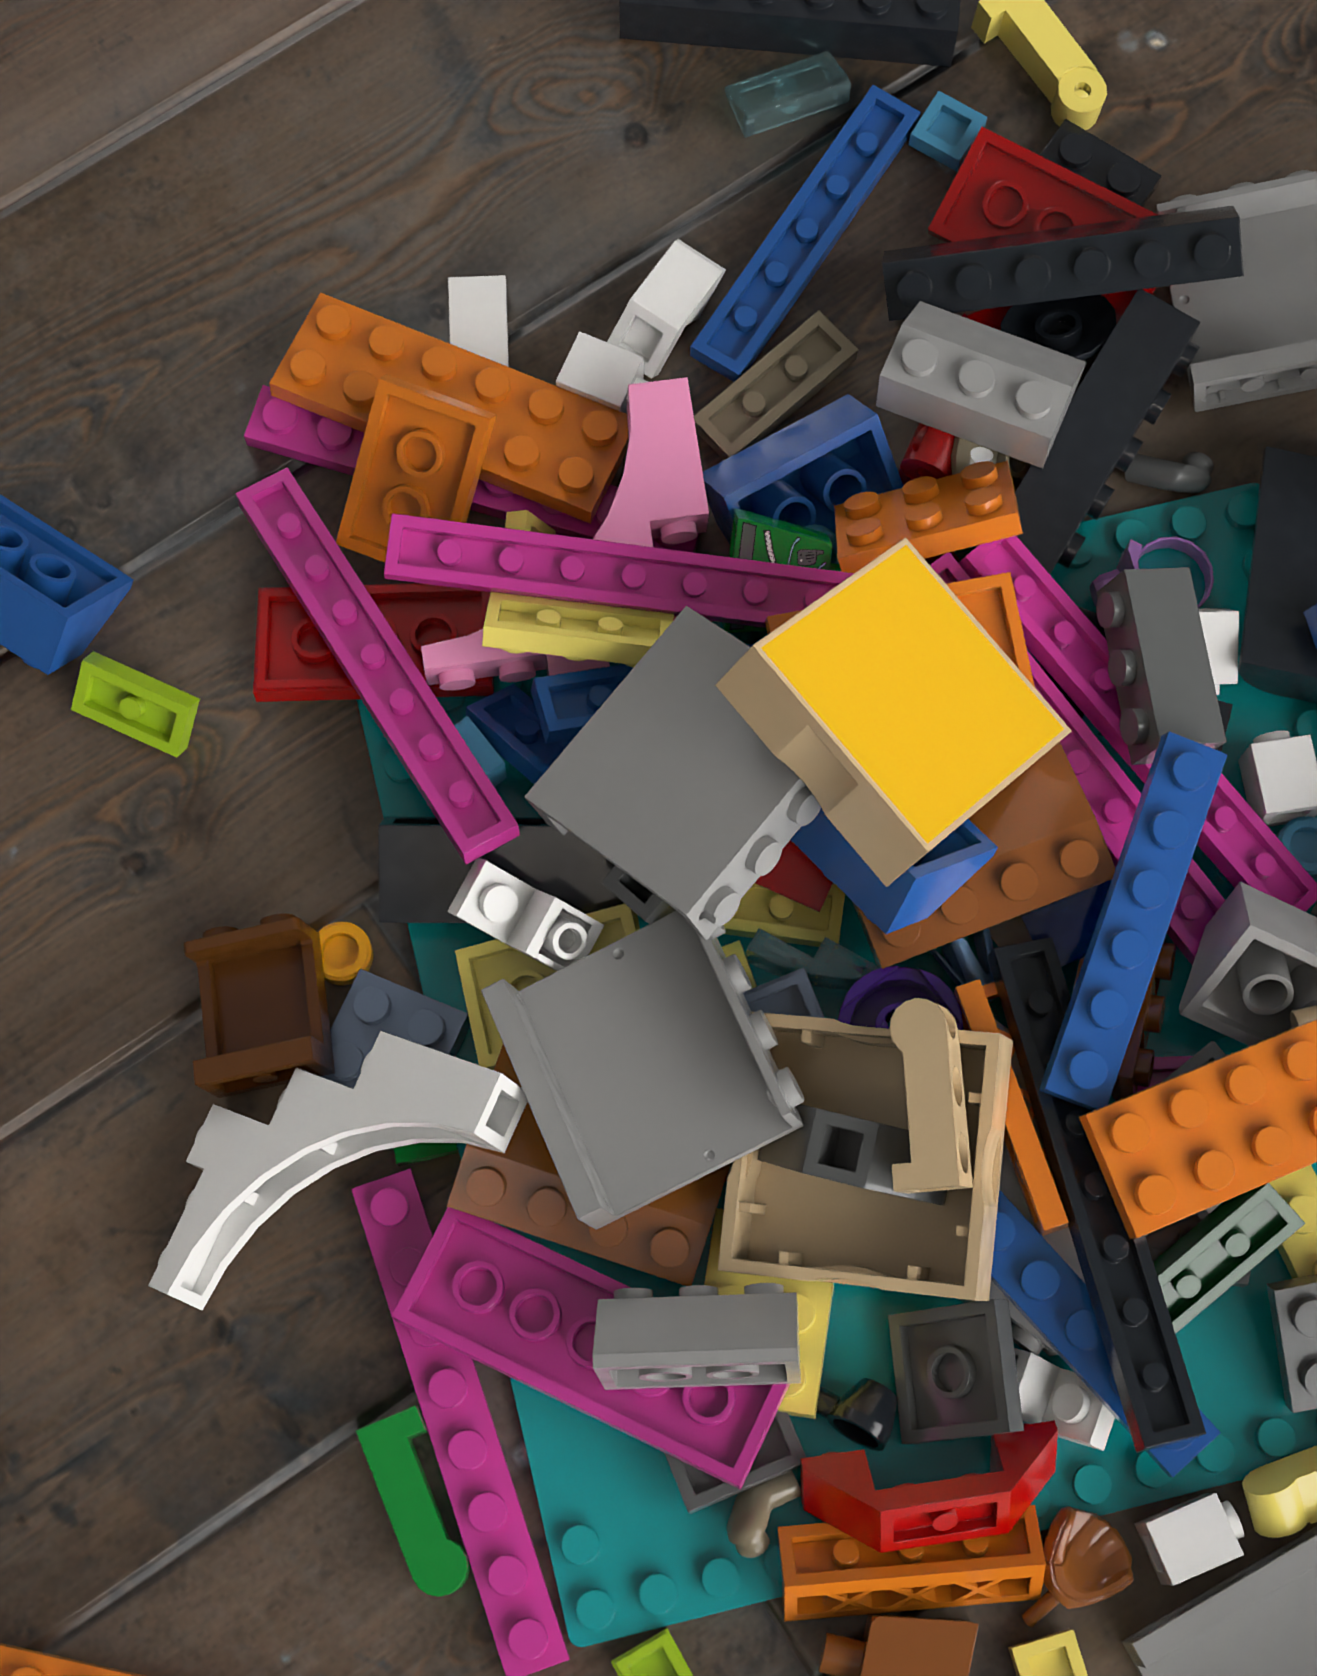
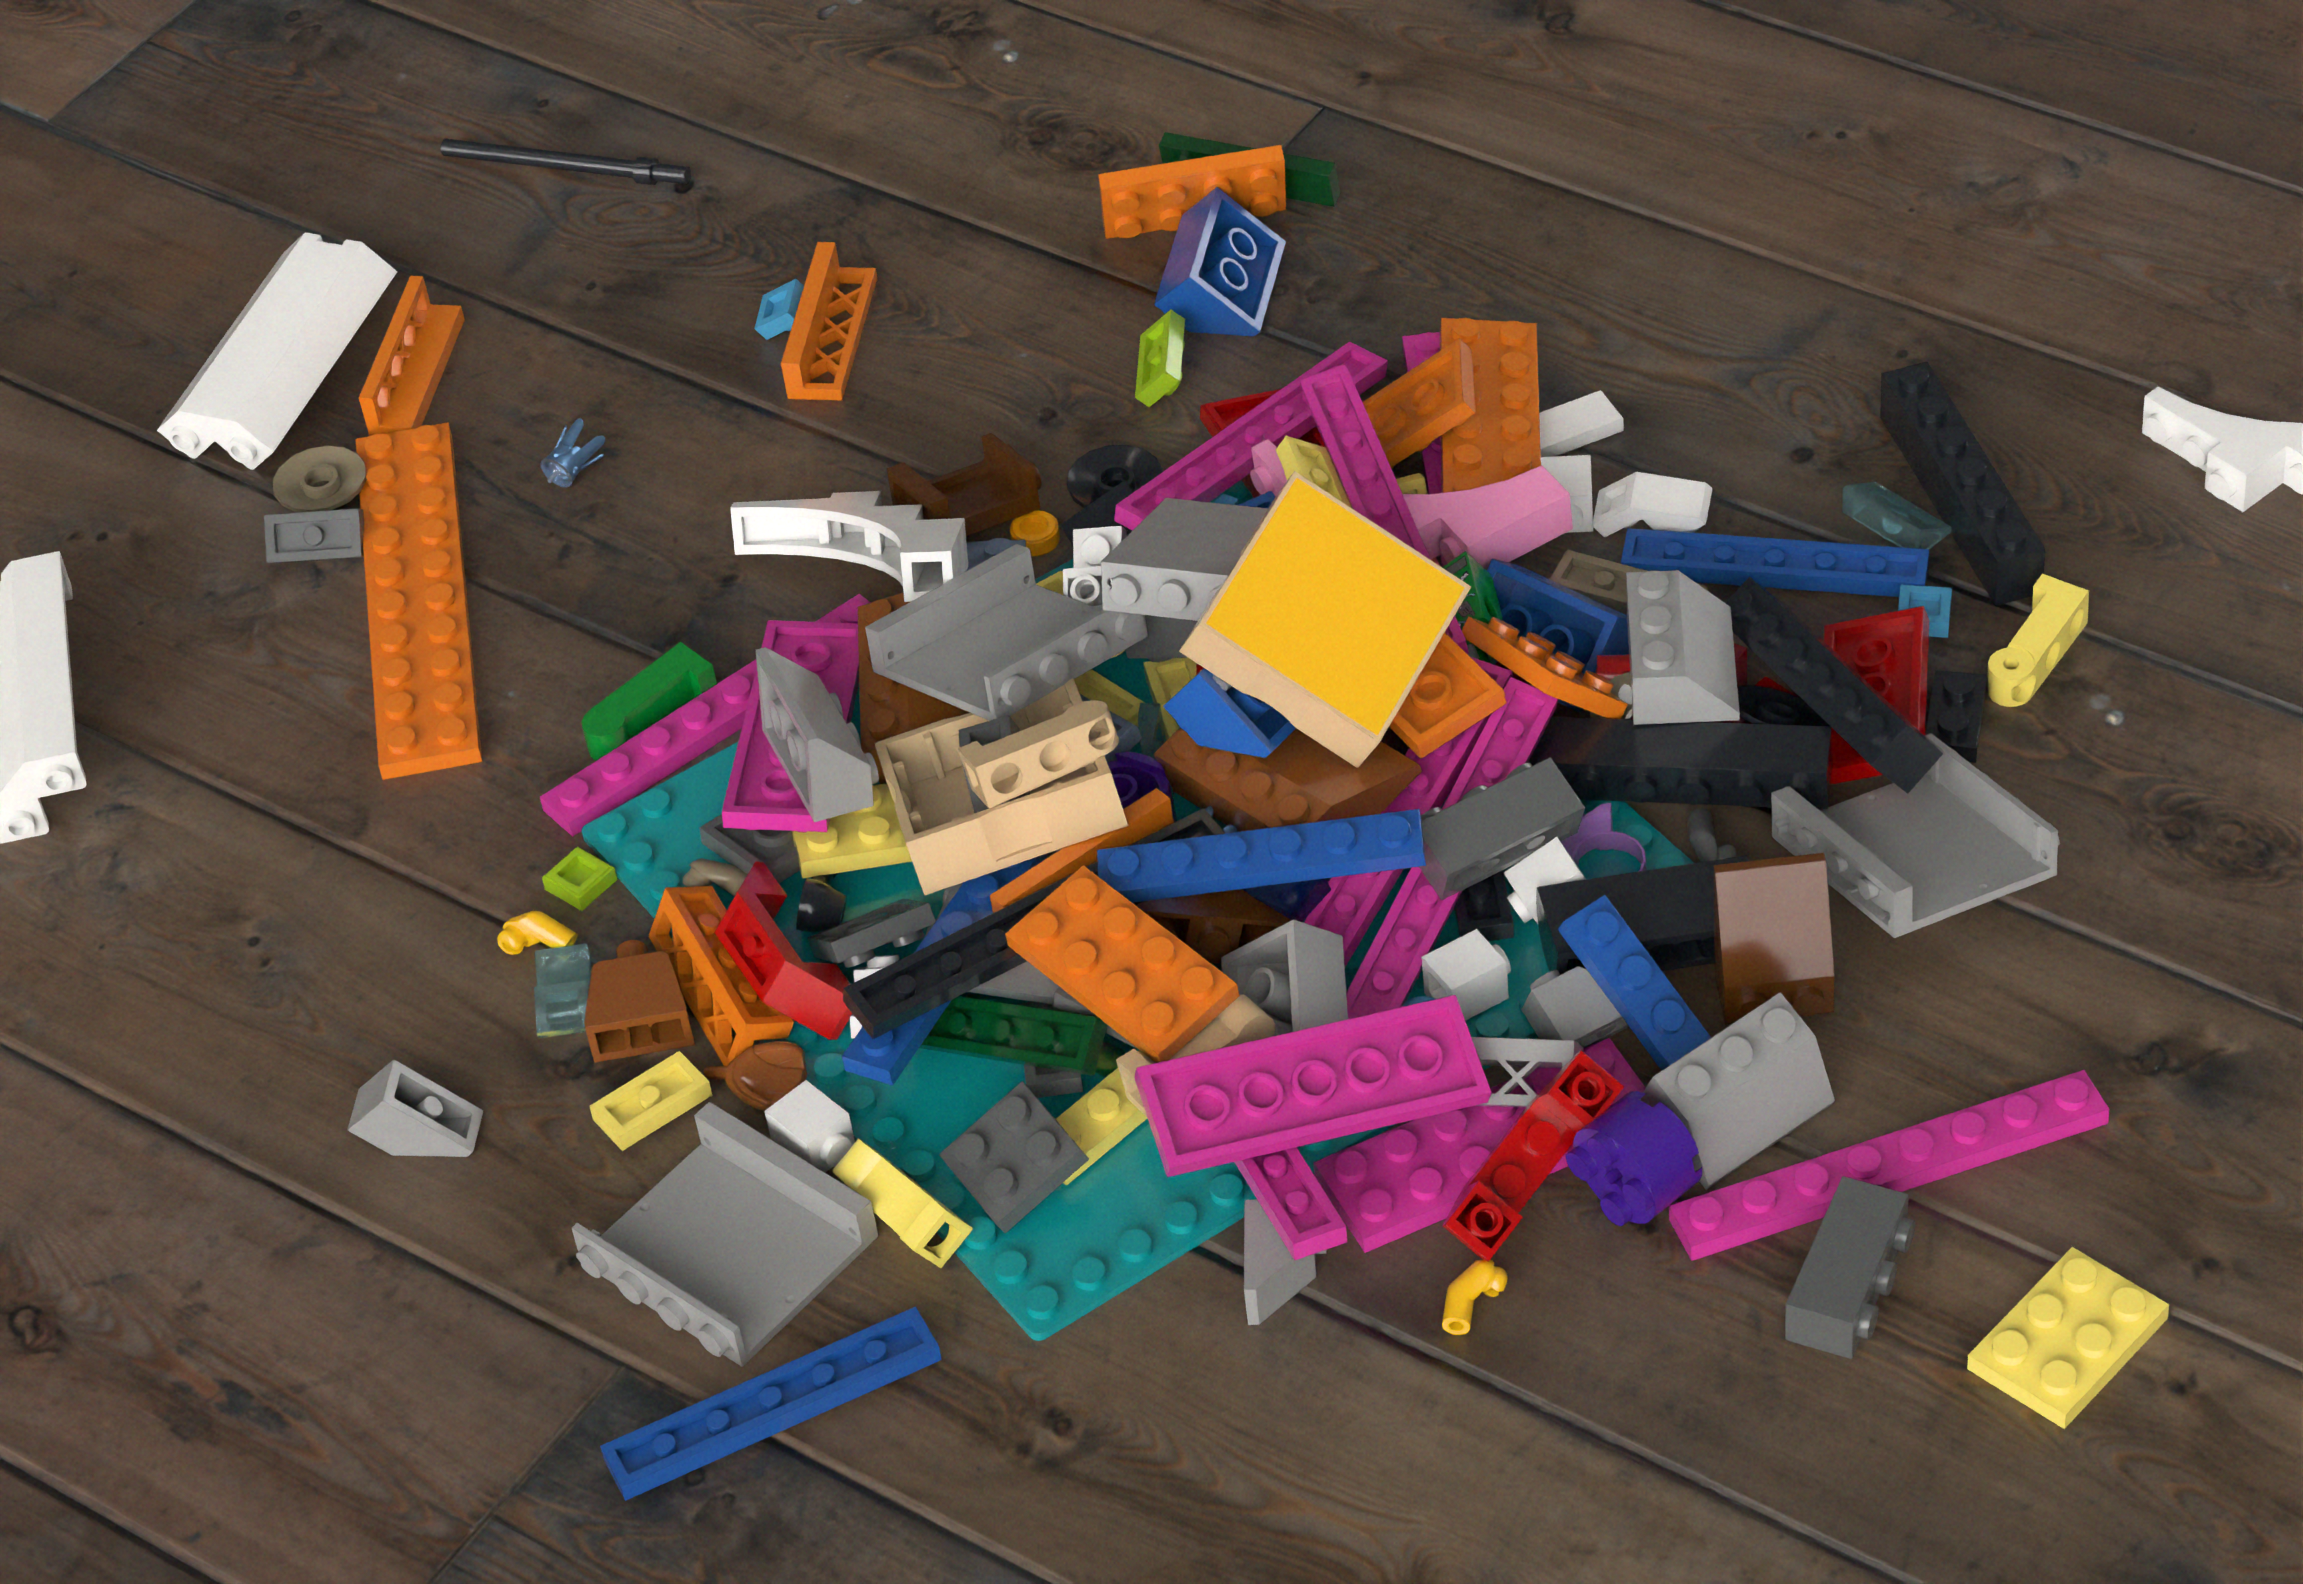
camera: 75 degrees right, 30 degrees down
(315, 805) = (1106, 468): none -> black dish

